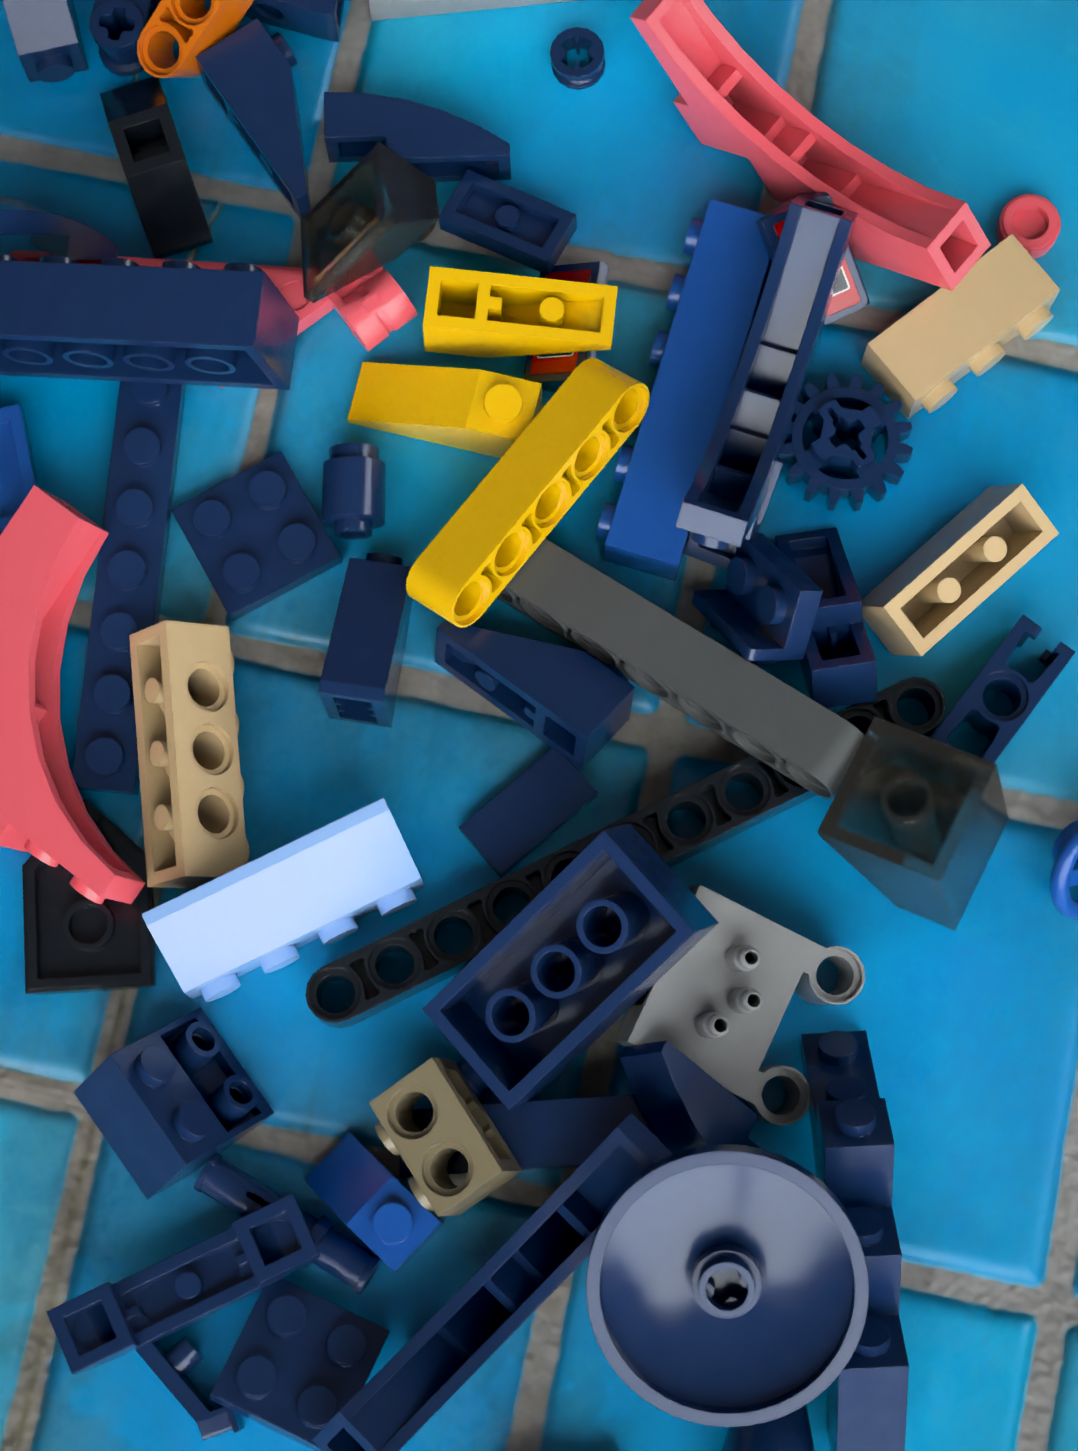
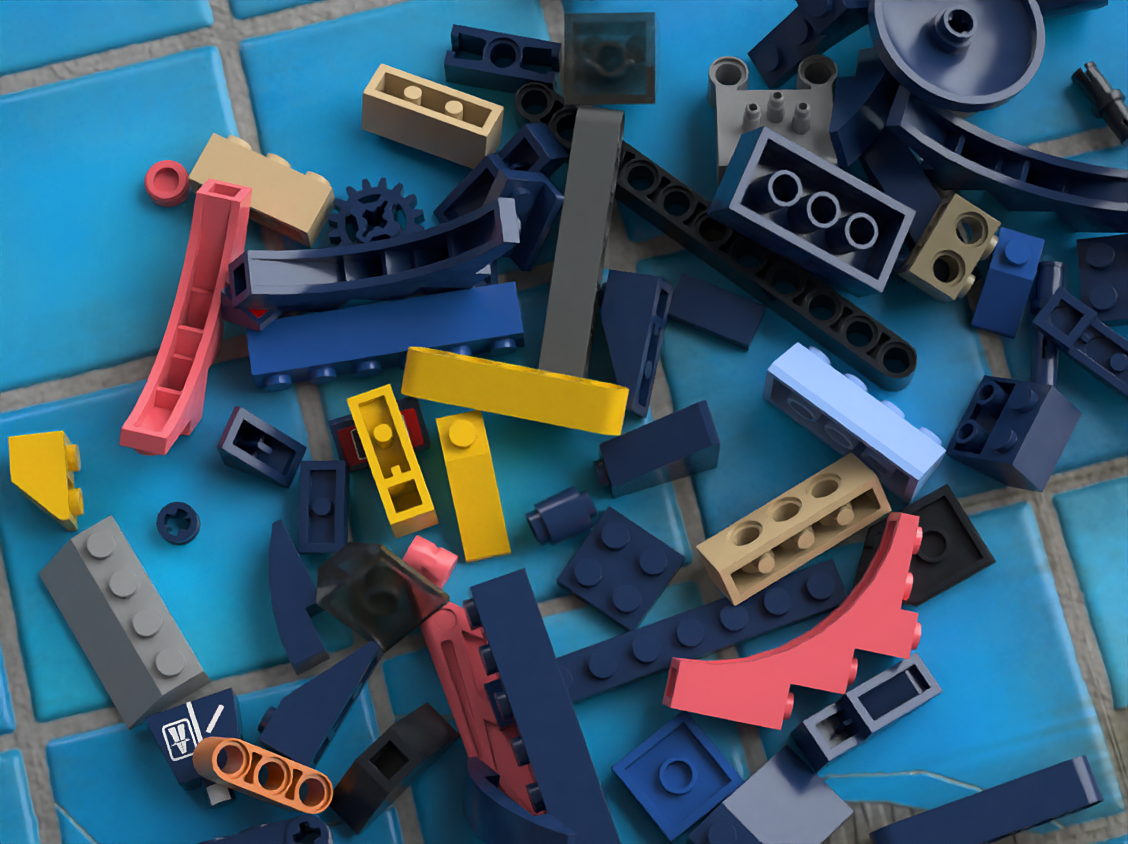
camera: 115 degrees left, 5 degrees down
(619, 178) = (259, 449): none -> dark blue slope

